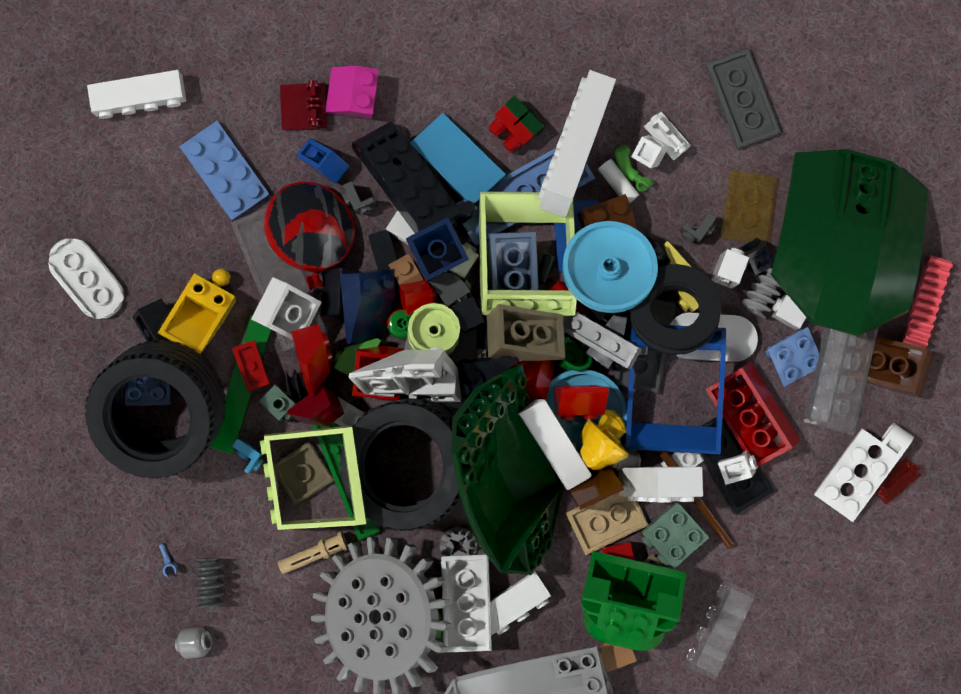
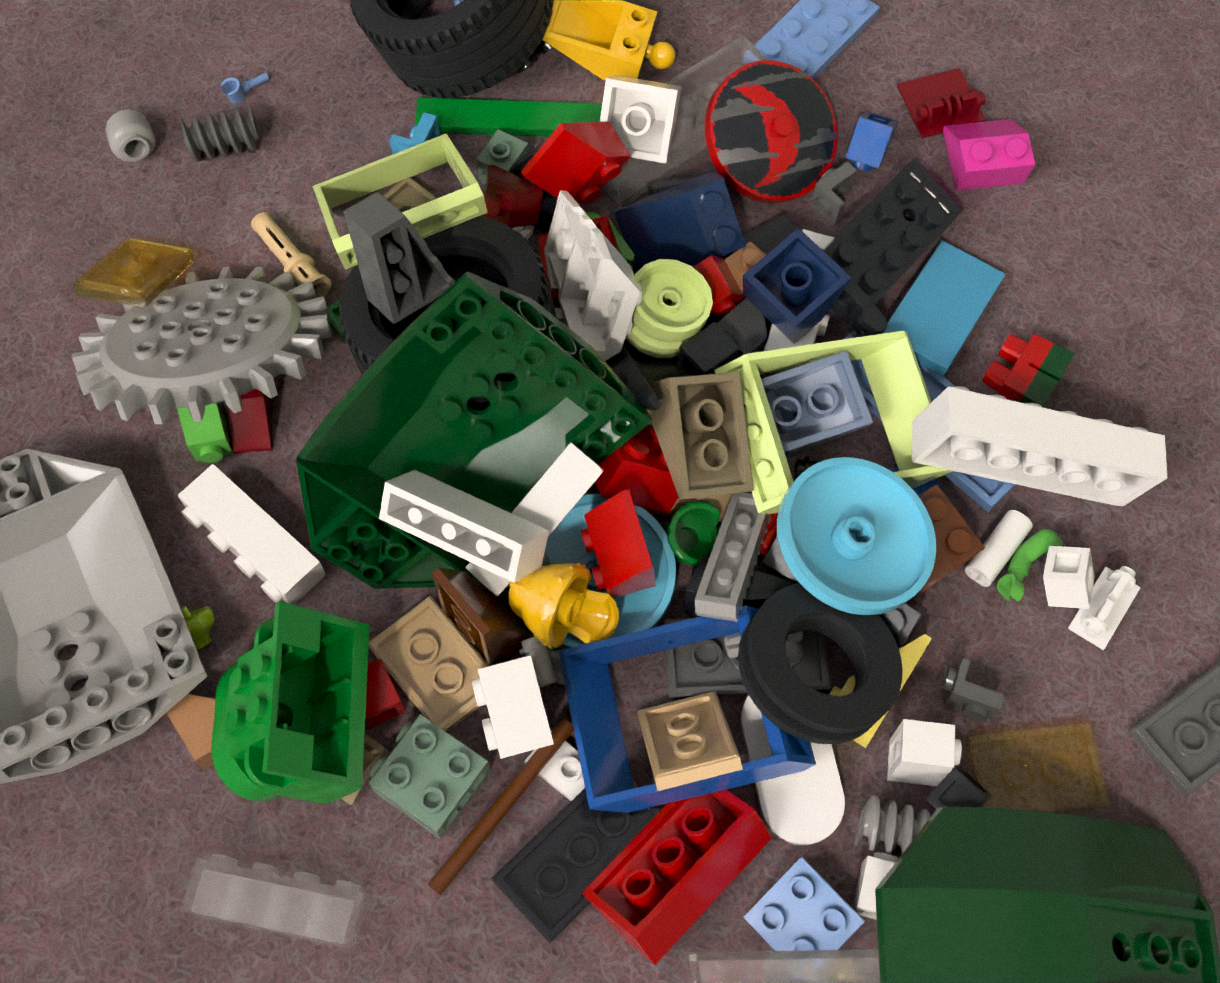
camera: 75 degrees right, 20 degrees down
(251, 366) = (546, 112): red plate -> none
(308, 653) = (134, 272): none -> clear yellow tile
(314, 280) = (694, 160): red hand -> none
(387, 488) = (393, 259): none -> dark grey wedge
(469, 590) = (236, 469): white tile -> none
(550, 647) = (200, 623): none -> lime piece
(552, 486) = (464, 525): none -> white brick
(693, 391) = (688, 741): none -> tan tile
(738, 467) = (575, 857): white bracket -> none

